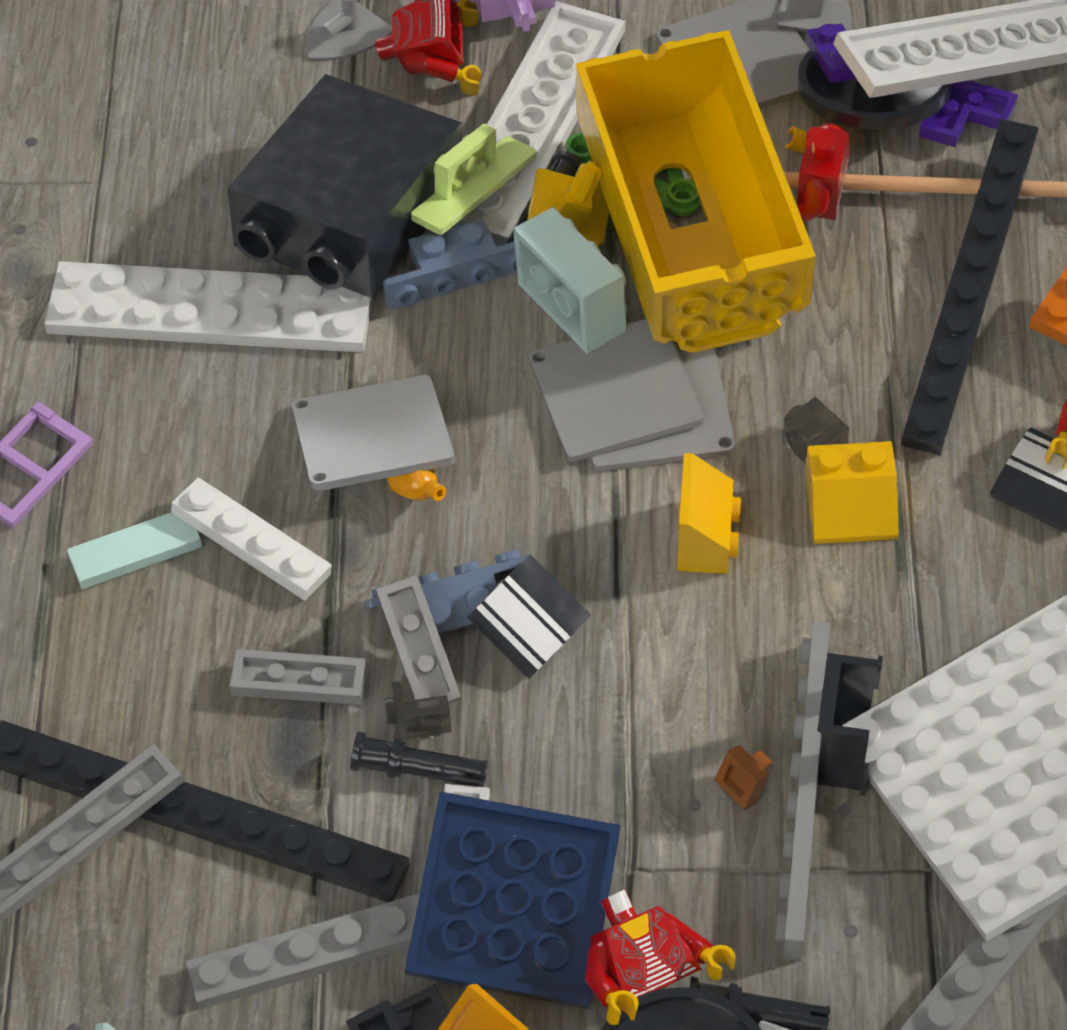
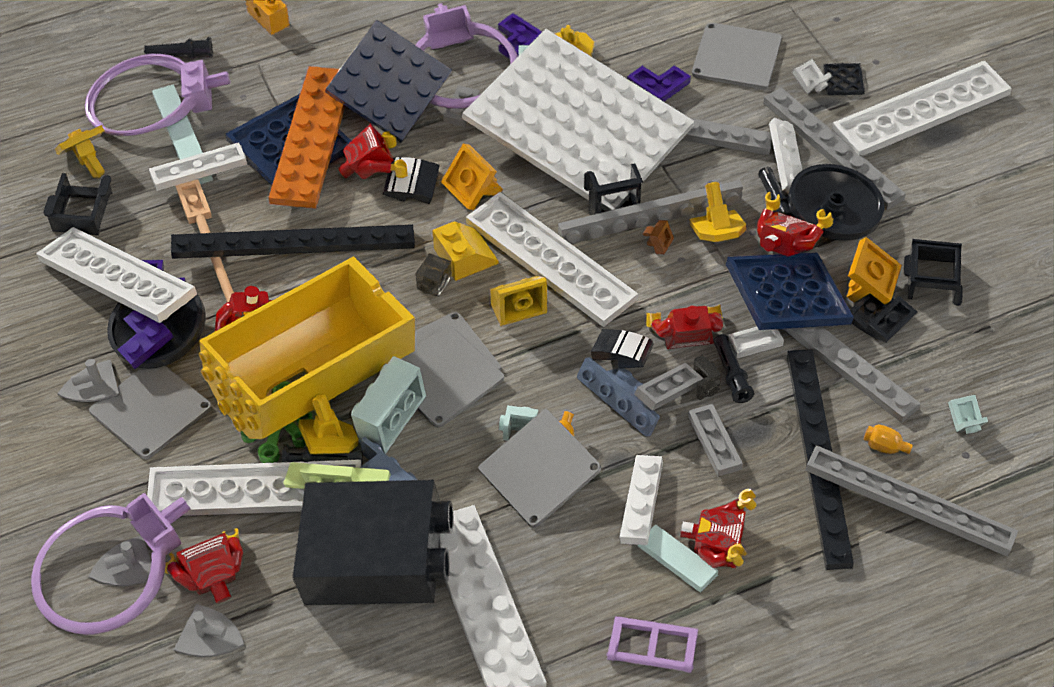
camera: 115 degrees left, 5 degrees down
(124, 600) = (721, 532): none -> red torso
(159, 913) = (886, 440): none -> light orange plant
(477, 441) = (515, 419): none -> light aqua bracket
(517, 725) = (687, 325): none -> red torso
(728, 876) = (719, 222): none -> yellow piece
(776, 605) = (552, 257): none -> white plate
(1003, 558) = (470, 177): none -> light orange bracket

